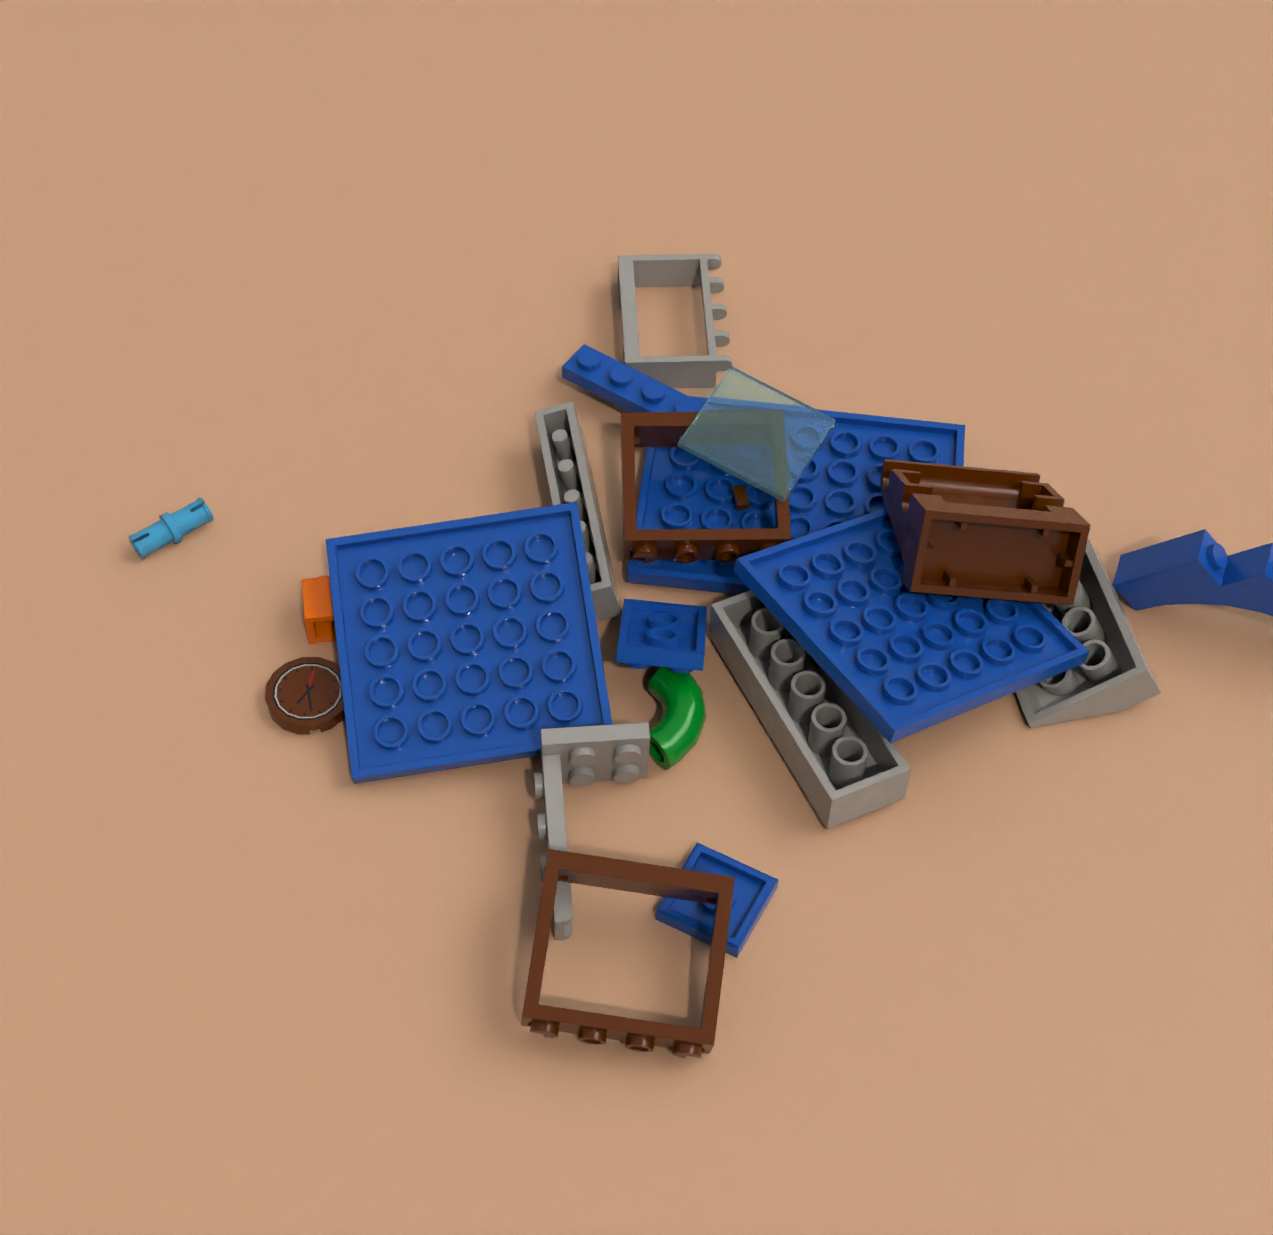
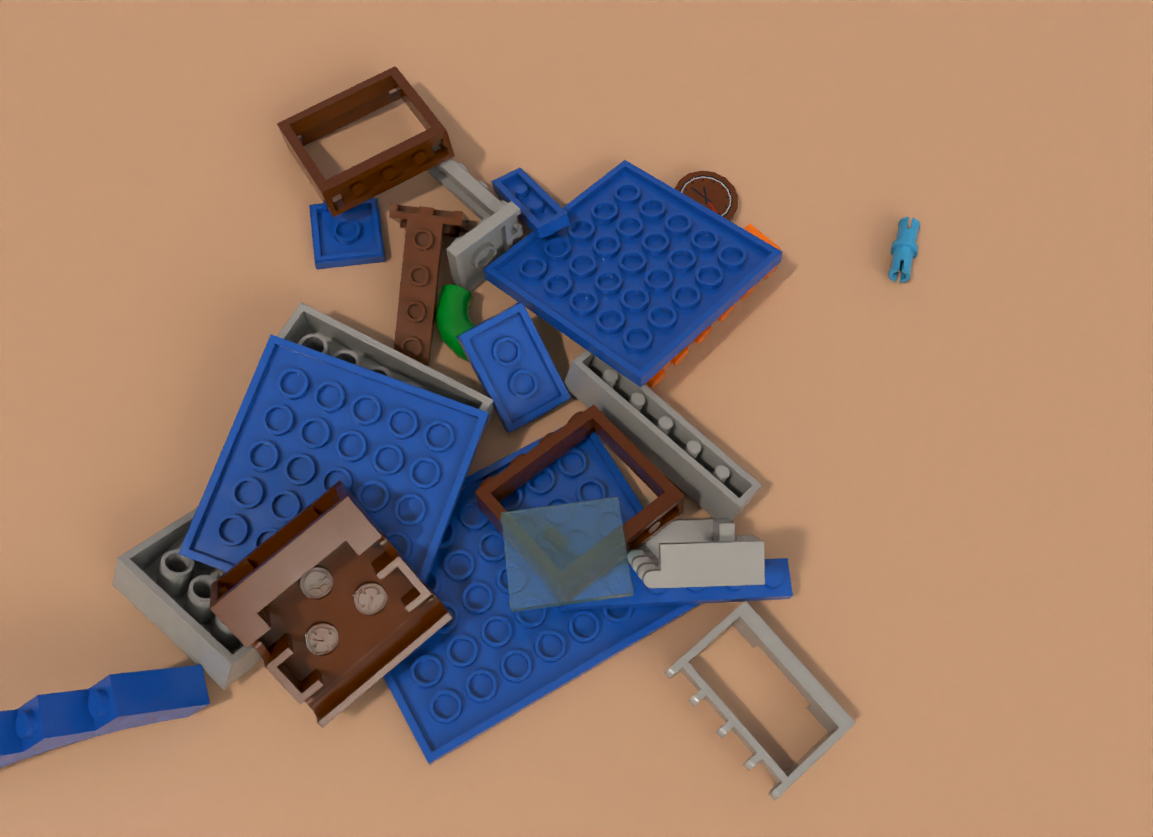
camera: 135 degrees right, 15 degrees up
(504, 779) = (537, 208): none -> blue plate
(633, 304) = (699, 556): none -> light grey hinge
(638, 798) = (421, 274): none -> reddish brown bracket

